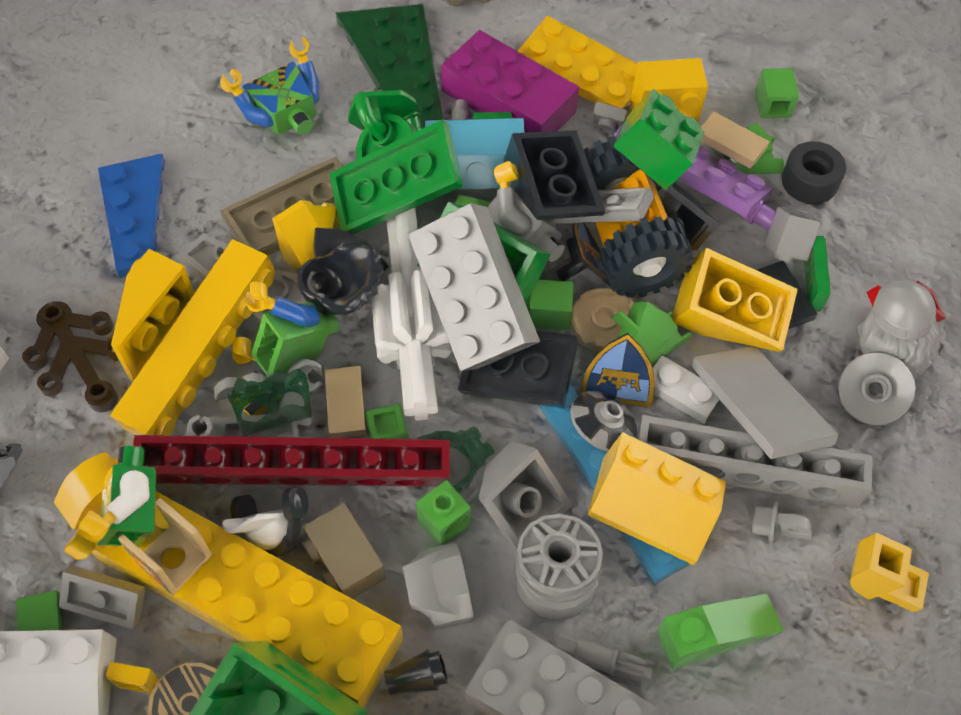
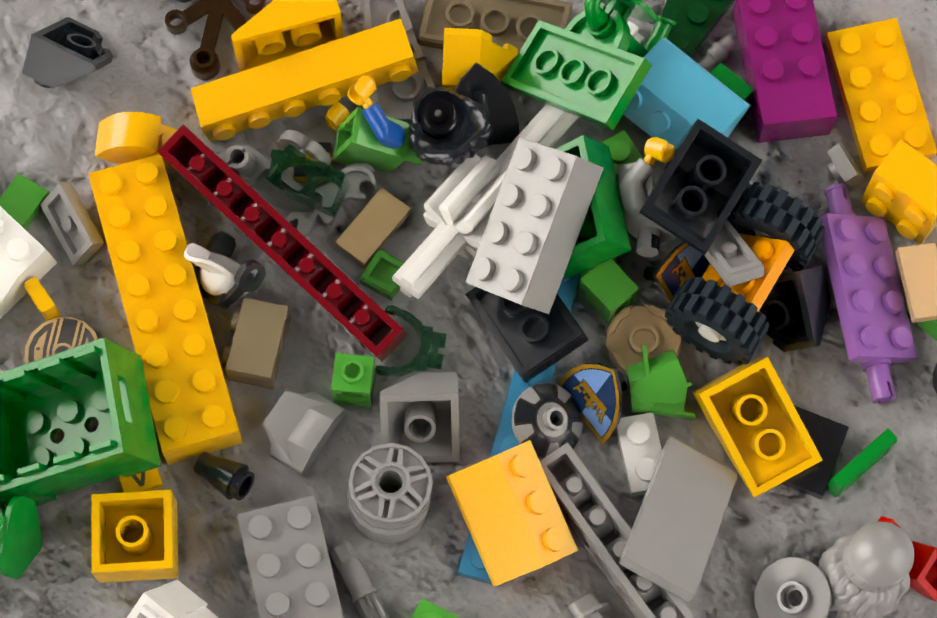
camera: 45 degrees right, 10 degrees up
(125, 507) = (128, 174): torso -> none
(179, 535) = (114, 229): tan piece -> none
(660, 139) = (820, 229): green brick -> none
(792, 235) = (874, 411): light grey brick -> none

